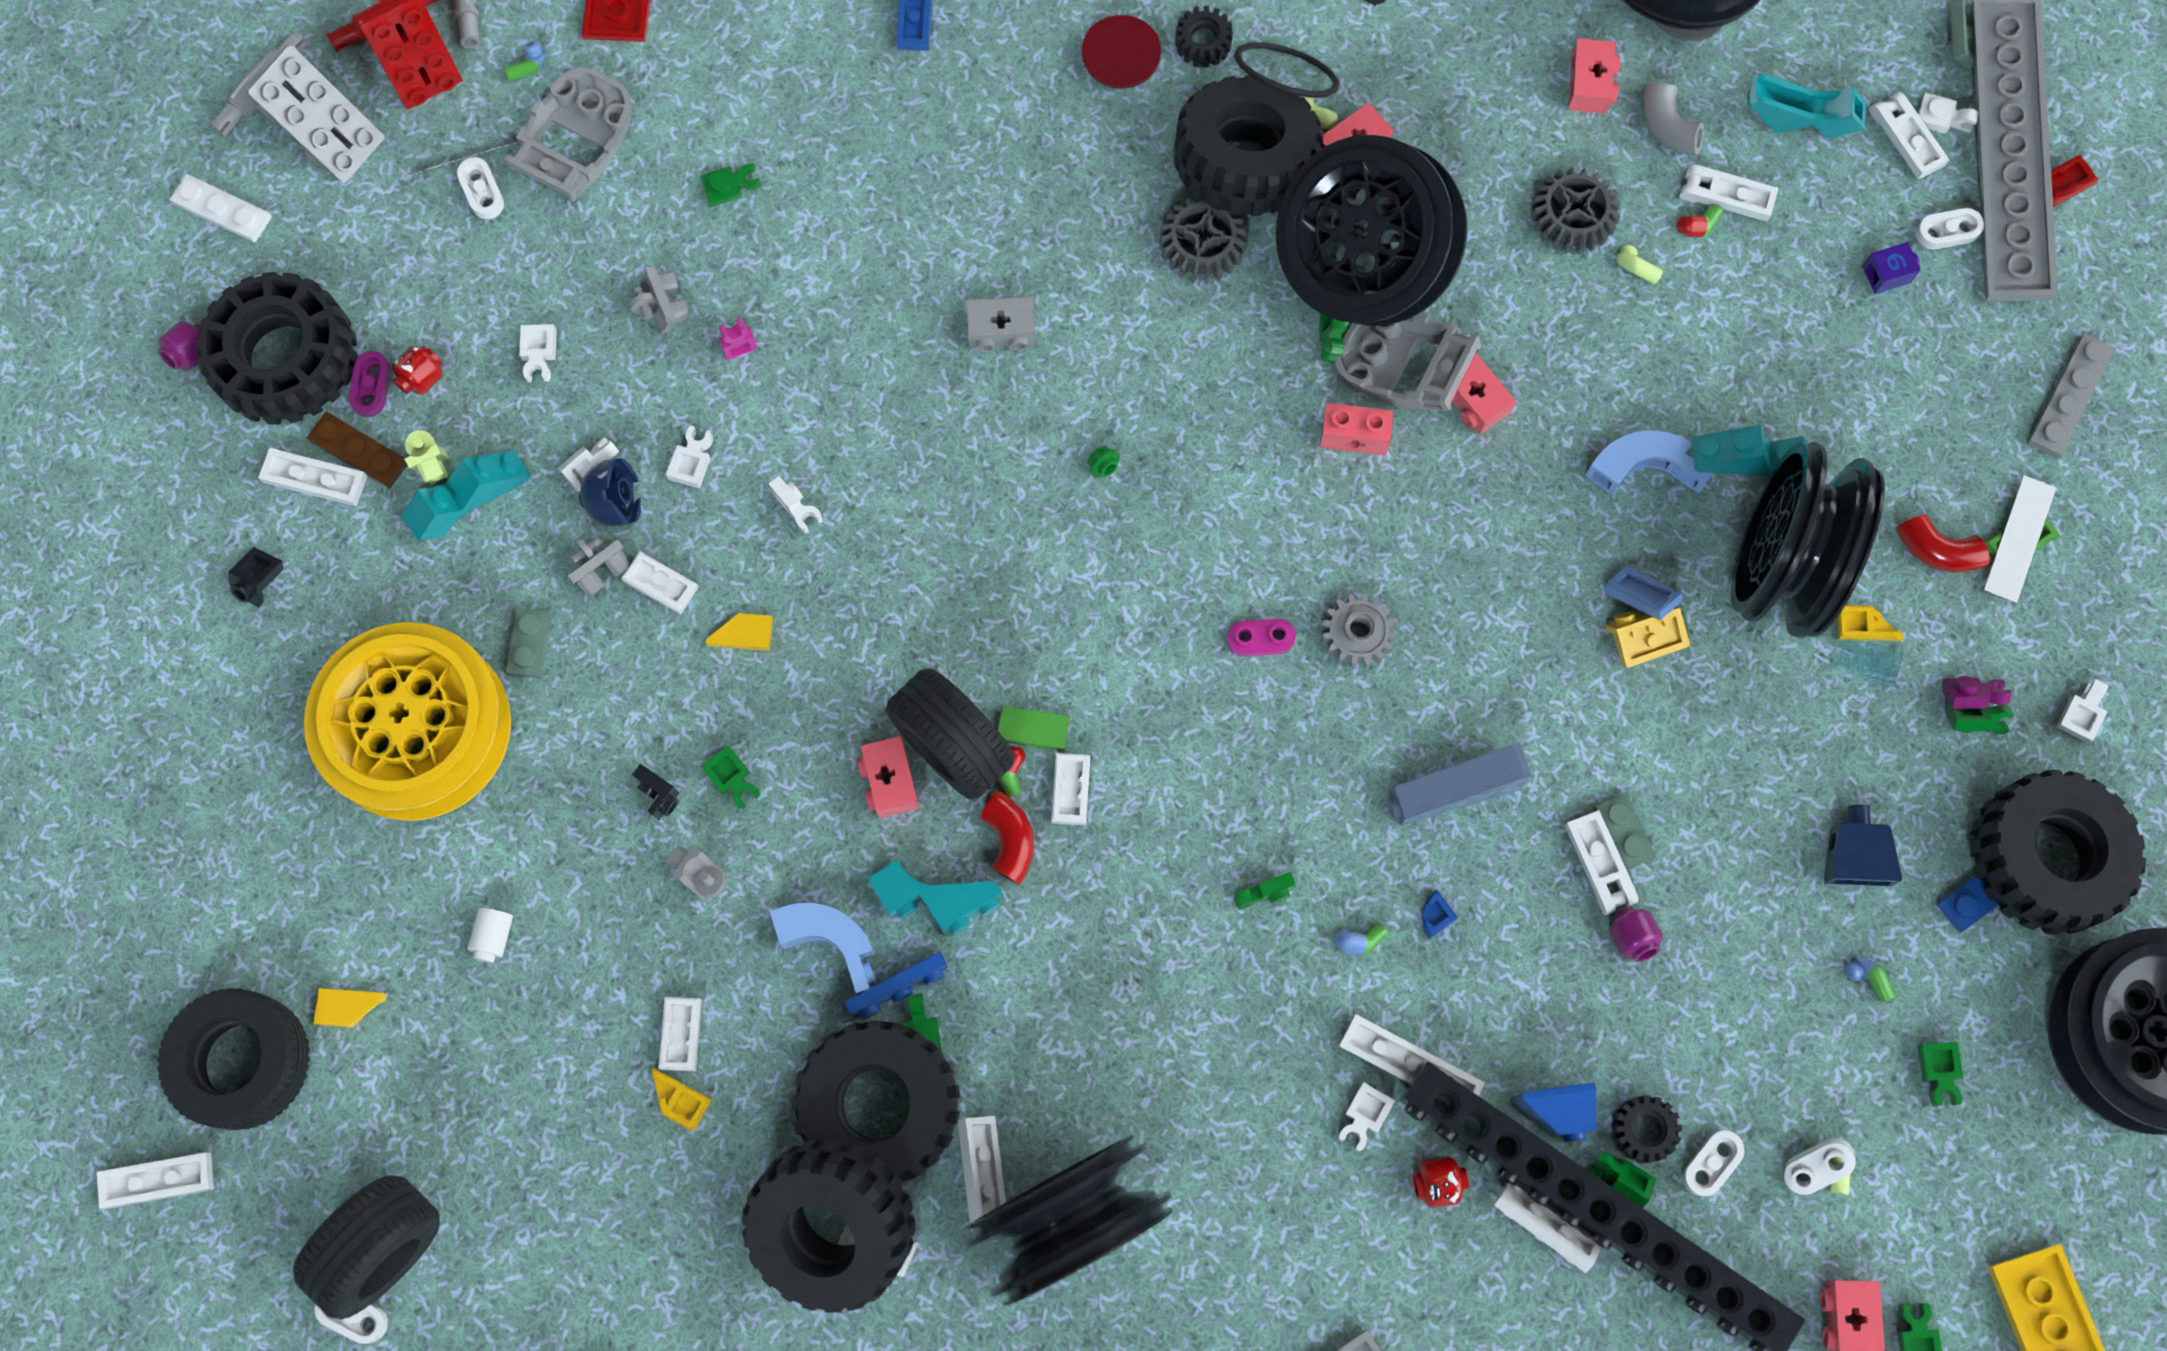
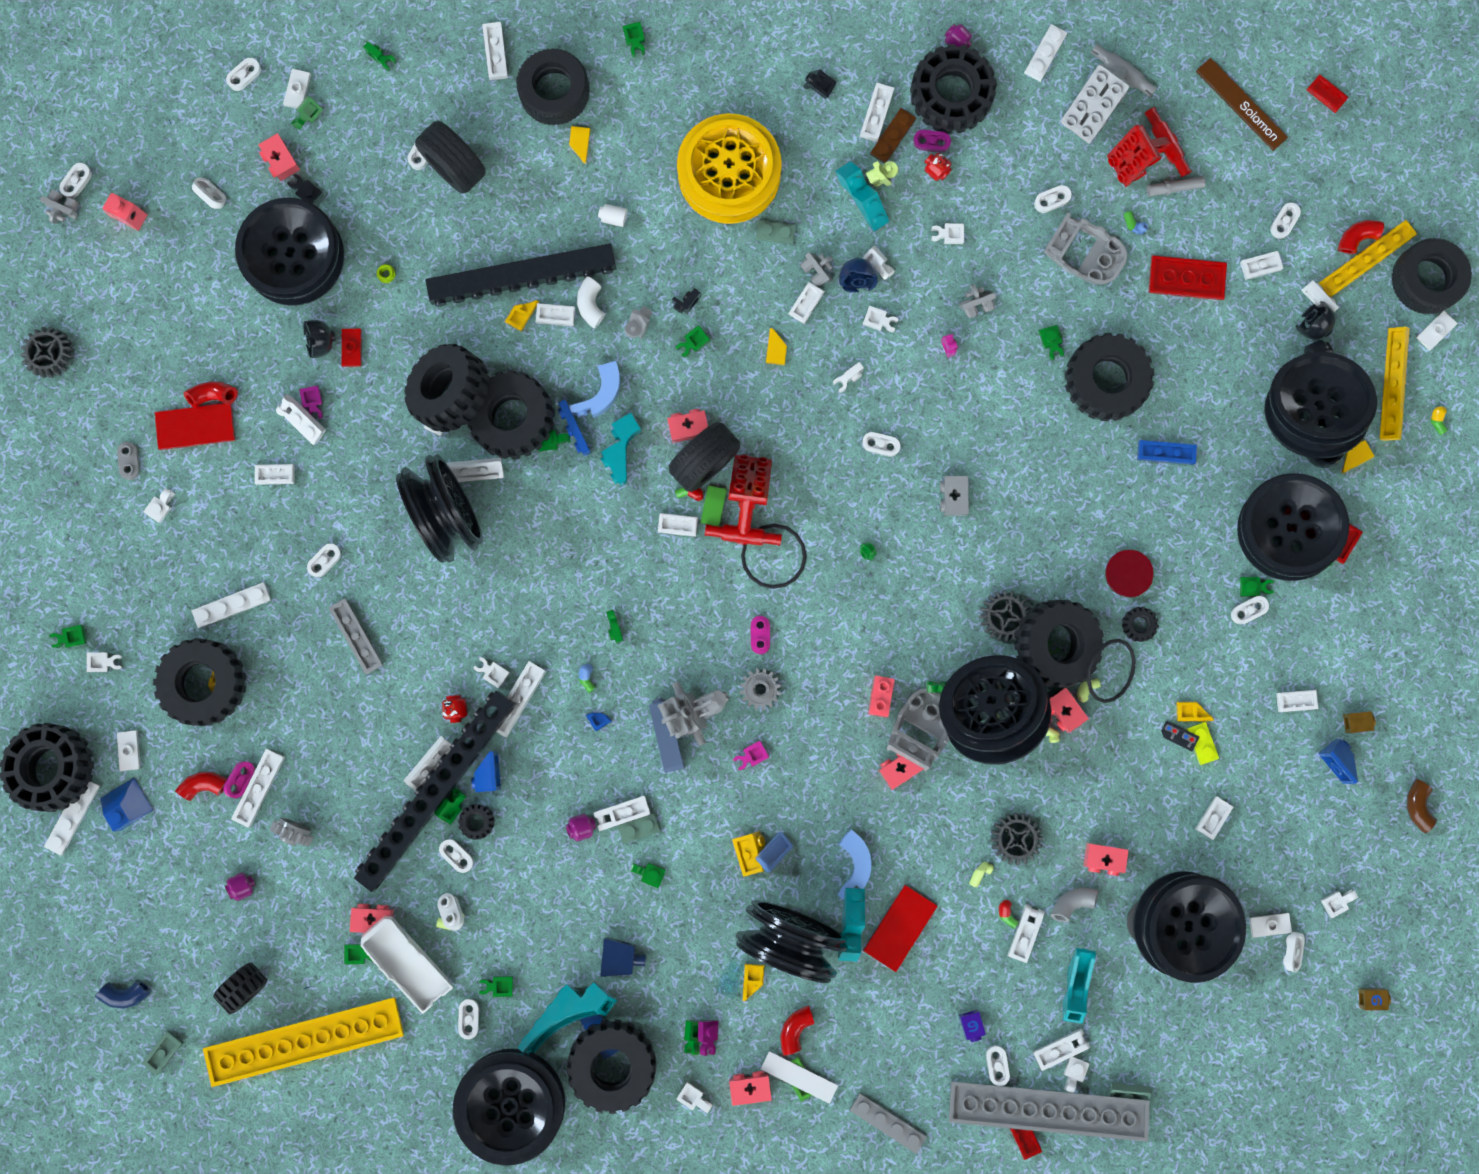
camera: 90 degrees right, 10 degrees up
(144, 912) = (634, 36): none -> green plate
(462, 158) = (1072, 187): sticker -> none
(602, 1106) = (521, 274): none -> black brick
(656, 974) = (587, 302): none -> white cylinder
(784, 47) = (1123, 353): none -> black tyre
(913, 449) = (881, 443): none -> white plate
(1006, 655) = (749, 487): none -> red plate
(1014, 835) = (651, 493): red cylinder -> none
(1171, 632) = (789, 581): none -> black piece
(1412, 747) = (689, 715): none -> light grey piece
(1474, 637) = (753, 754): none -> dark pink plate
(1706, 807) = (651, 874): none -> green plate
(1744, 387) = (900, 928): none -> red tile
(1874, 973) = (551, 957): arm -> none
(1928, 1246) = (405, 963): none -> white piece
(1963, 938) = (566, 1009): none -> teal arch
(2006, 1122) = (468, 1018): none -> white plate
(2059, 600) = (760, 1093): none -> coral brick

